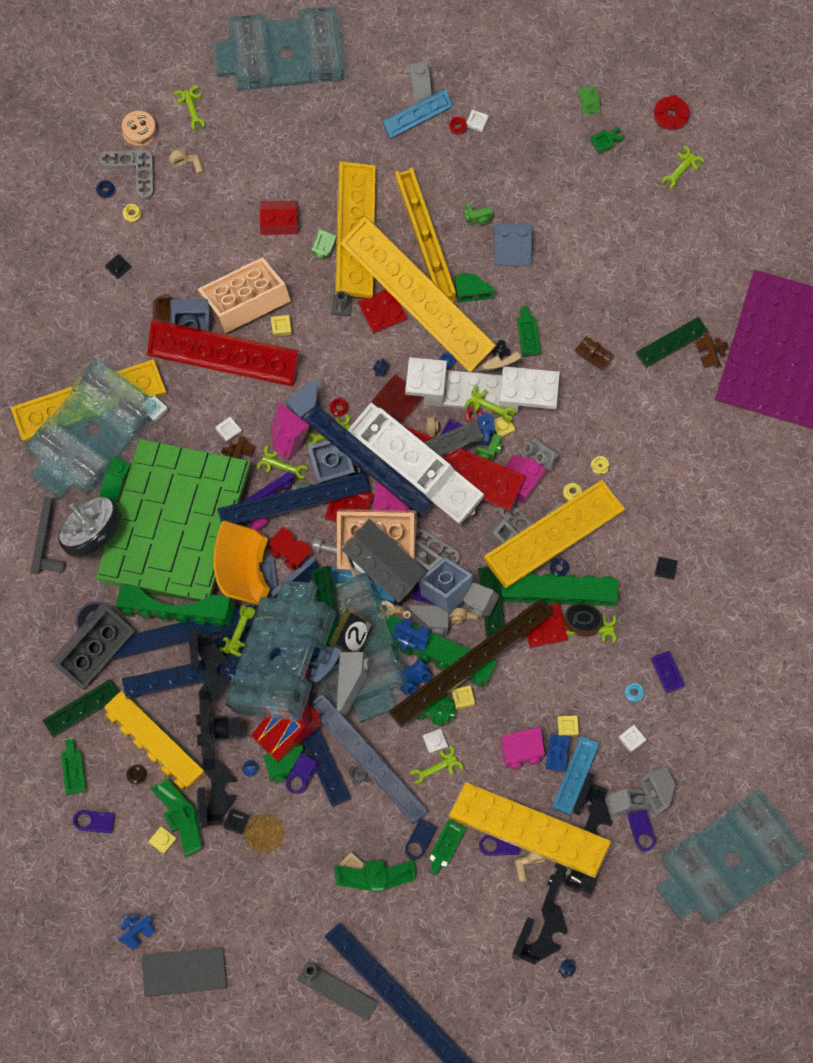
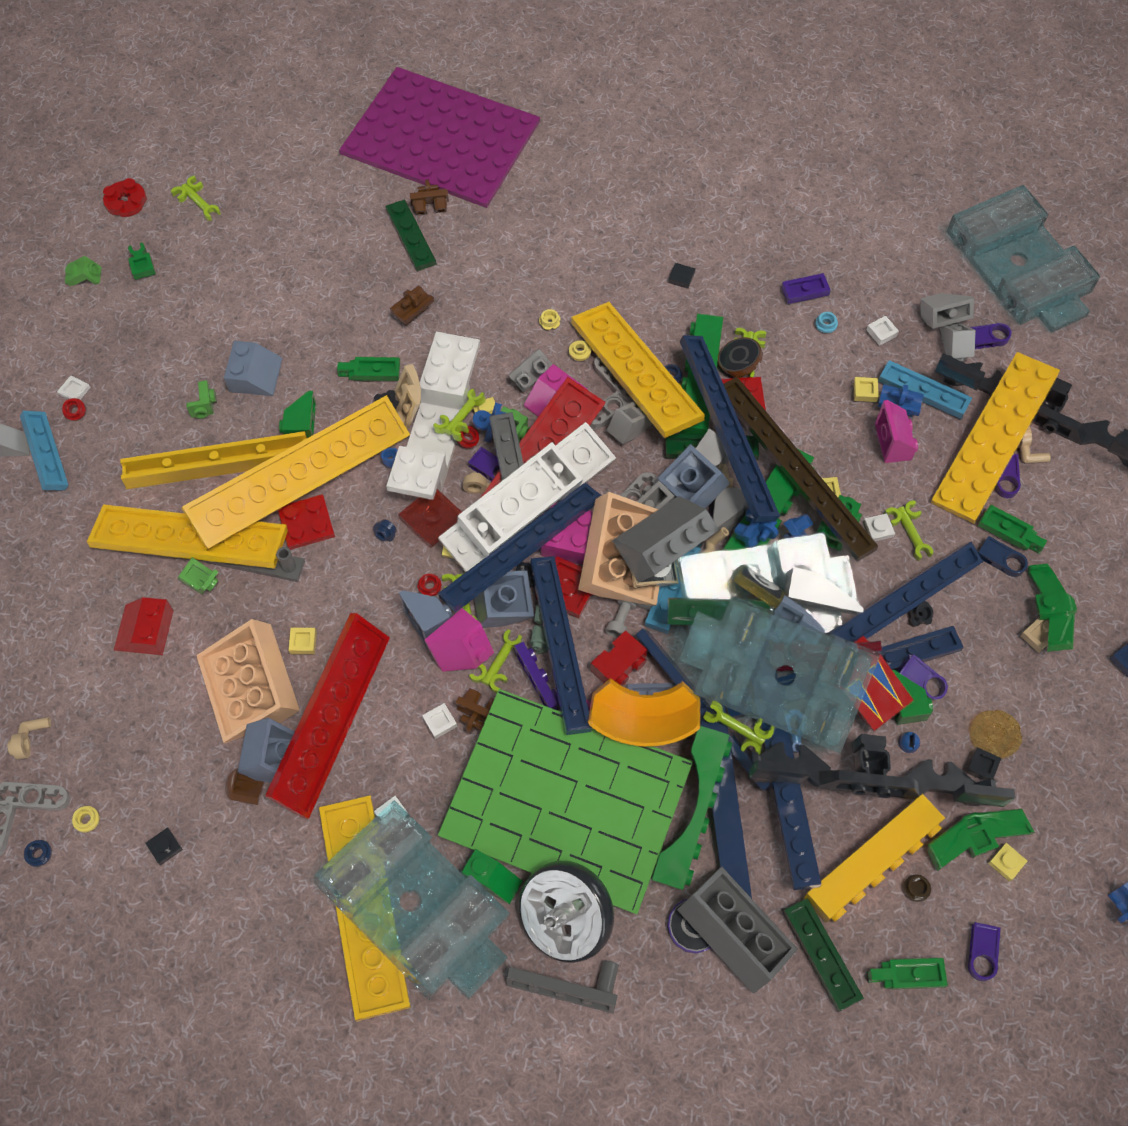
camera: 80 degrees left, 5 degrees down
(496, 603) = (729, 430): none -> dark blue plate

